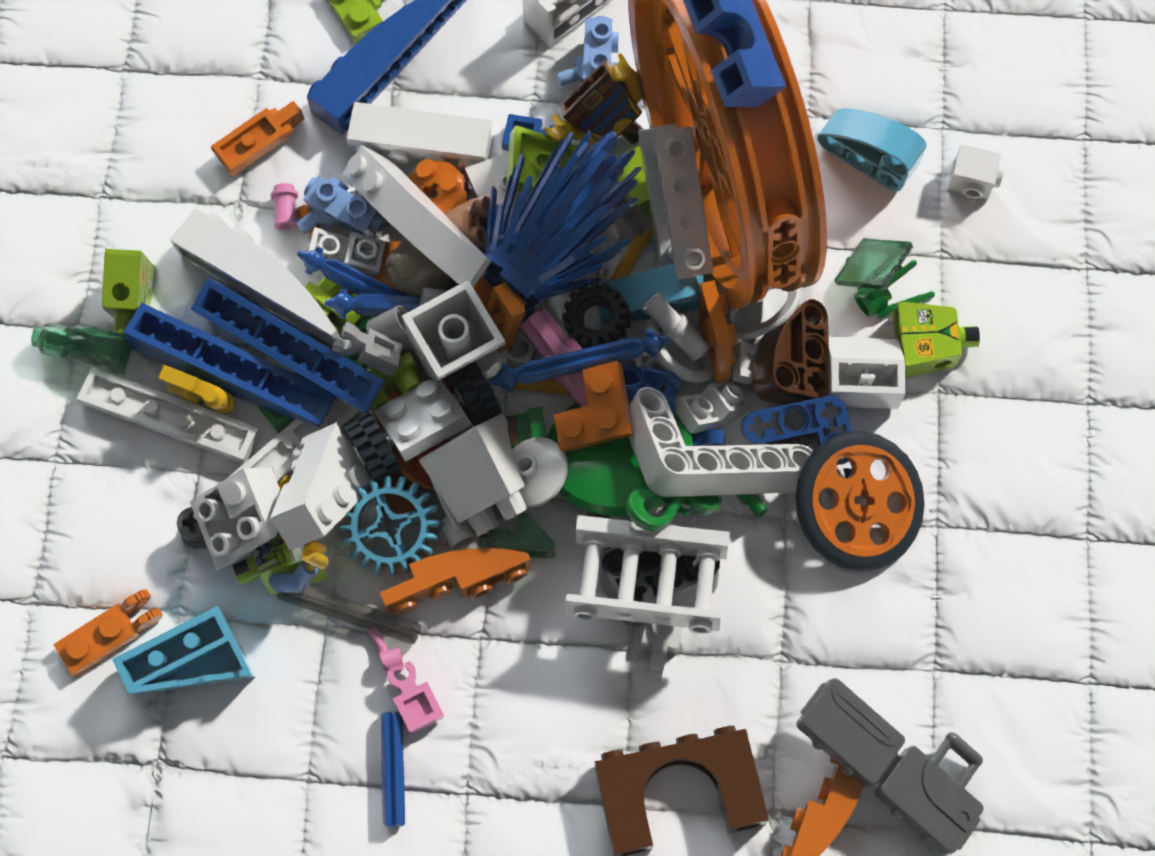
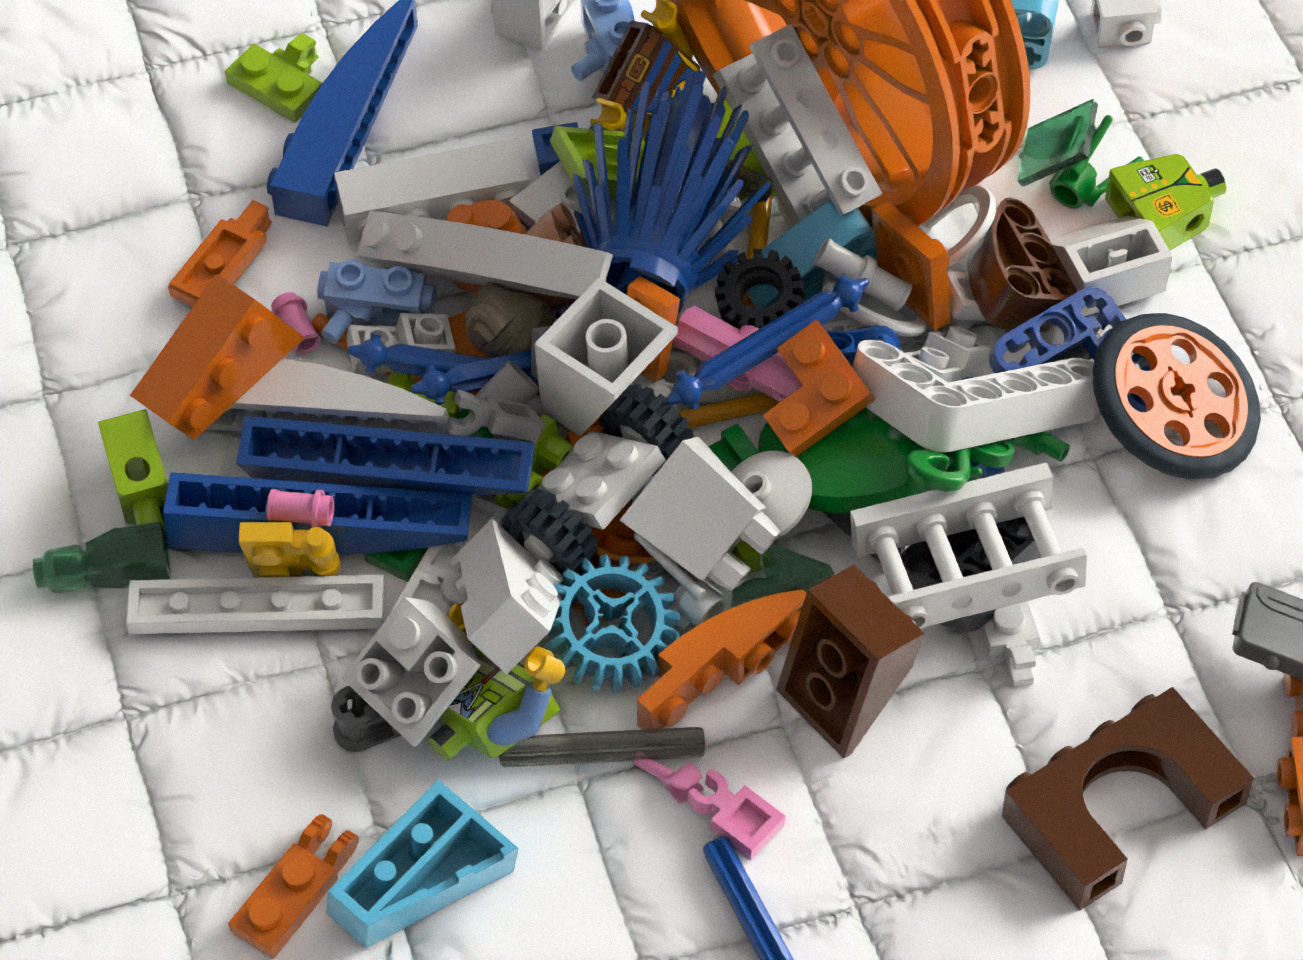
camera: 20 degrees left, 15 degrees down
(202, 228) = (214, 358): none -> orange wedge
(212, 366) = (300, 507): none -> bright pink pin
(530, 621) = (847, 657): none -> reddish brown slope

